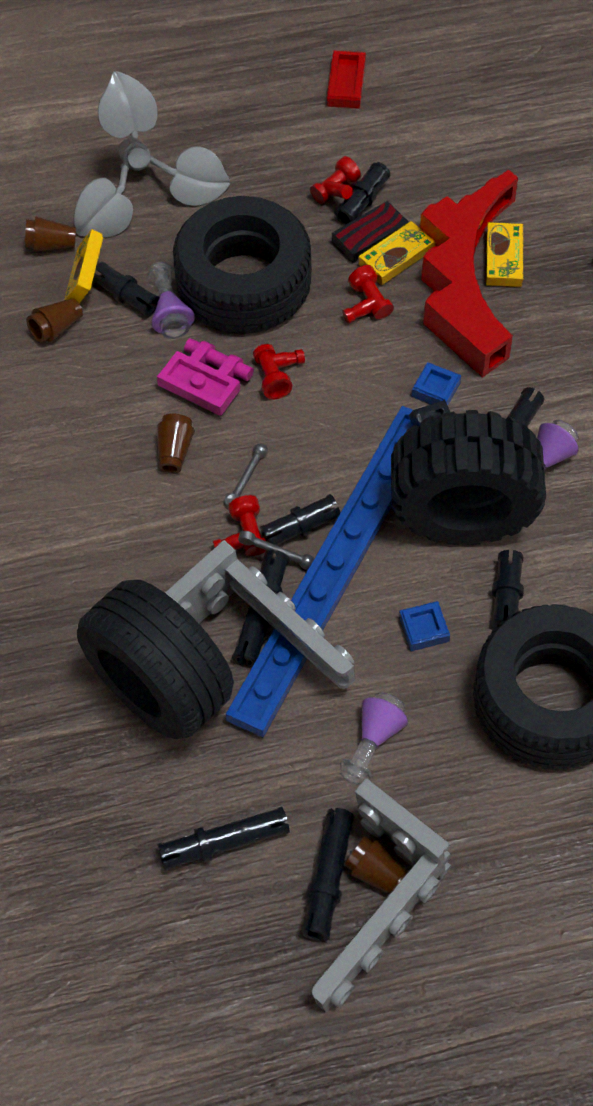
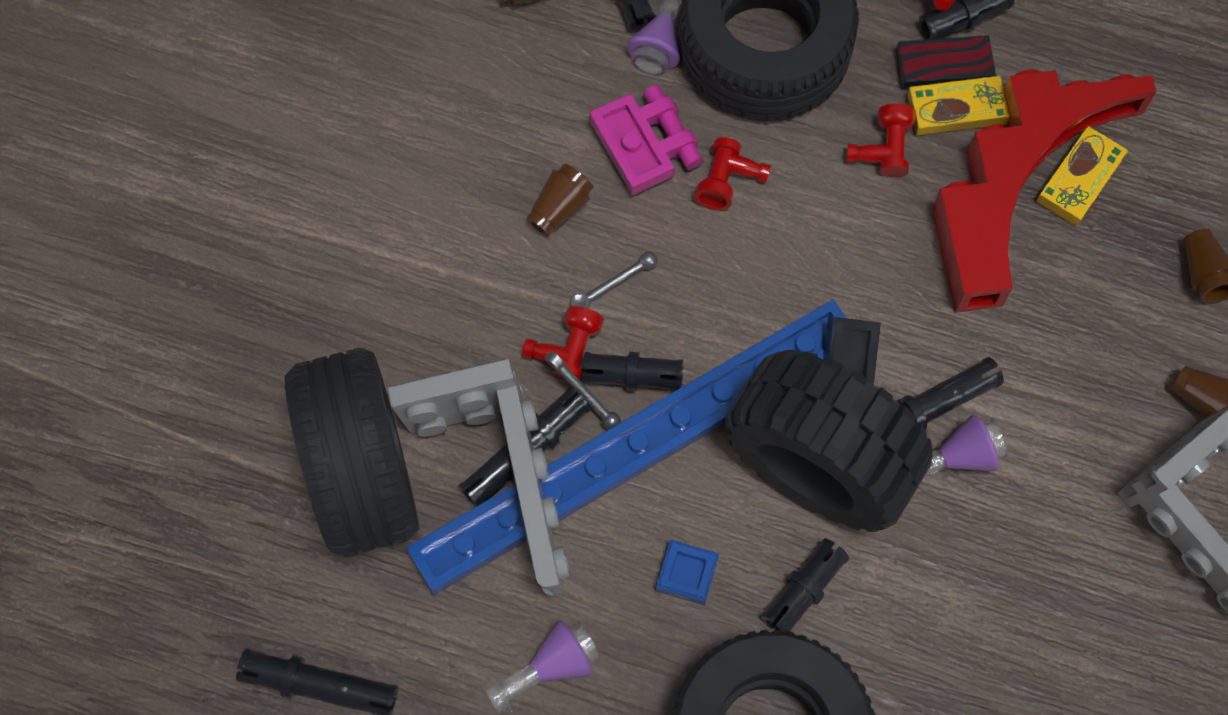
camera: 30 degrees right, 10 degrees up
(436, 384) = (893, 294): blue tile -> none

